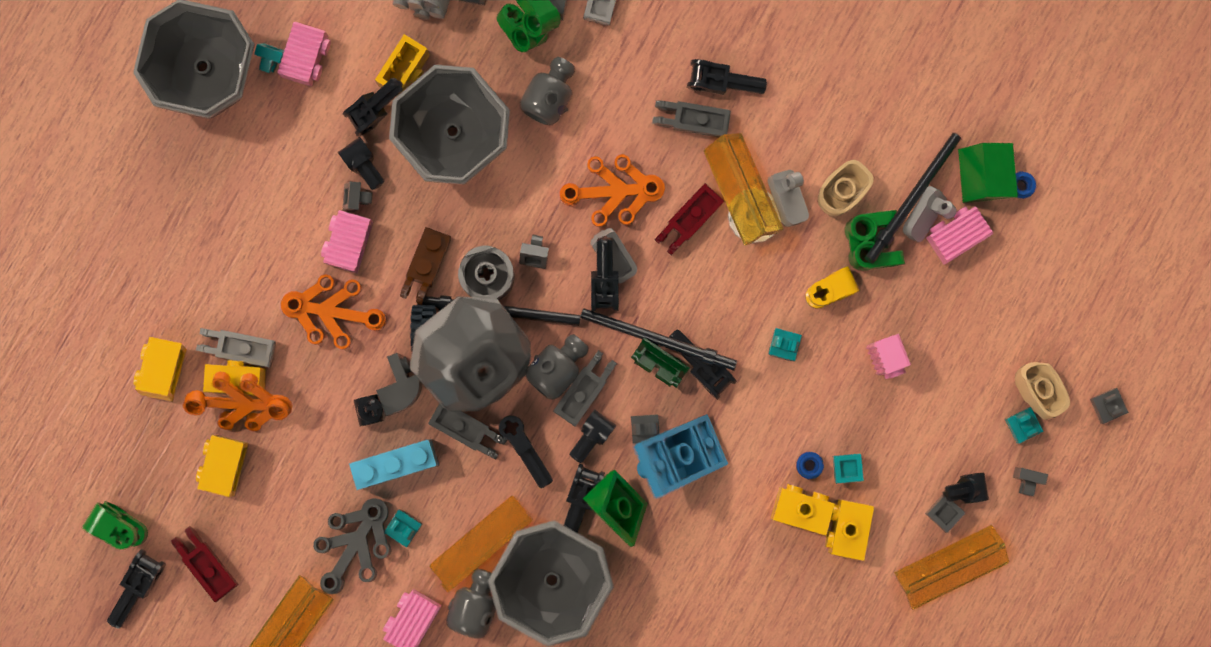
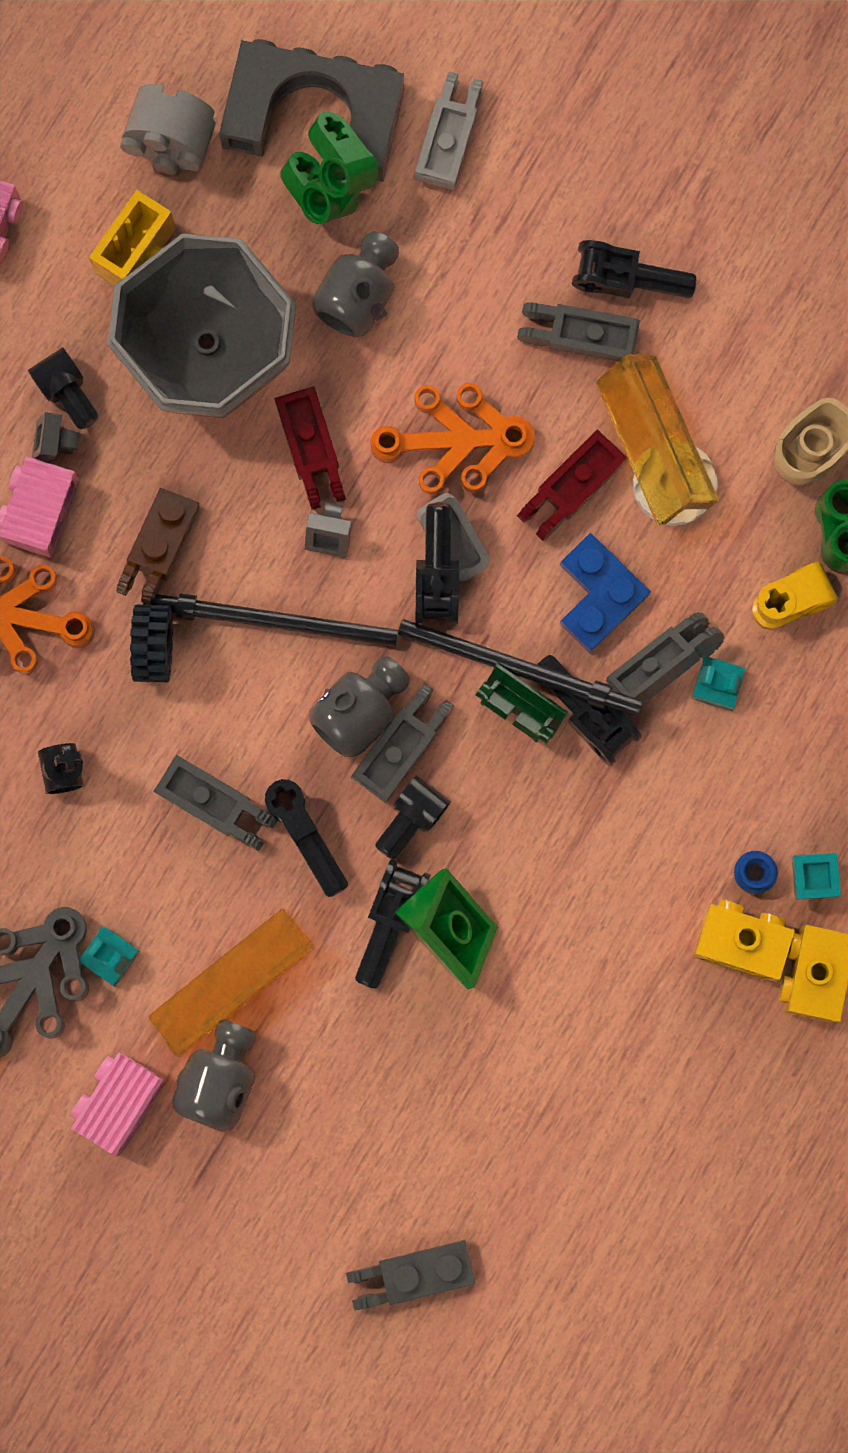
camera: 10 degrees right, 5 degrees down
(370, 109) = (79, 304): black connector -> none
(394, 464) = (97, 853): medium azure brick -> none
(404, 392) = (117, 742): dark grey brick -> none
(460, 342) = (207, 655): dark grey rock -> none
(473, 265) = (276, 555): light grey brick -> none
(520, 194) = (309, 442): none -> dark red hinge
(544, 610) = (294, 1035): dark grey rock -> none
(644, 427) = (496, 809): dark grey tile -> none
(680, 456) = (549, 847): dark azure brick -> none
(714, 285) = (610, 590): none -> blue plate
(751, 331) = (666, 658): none -> dark grey hinge
(788, 197) = (728, 454): light grey piece -> none

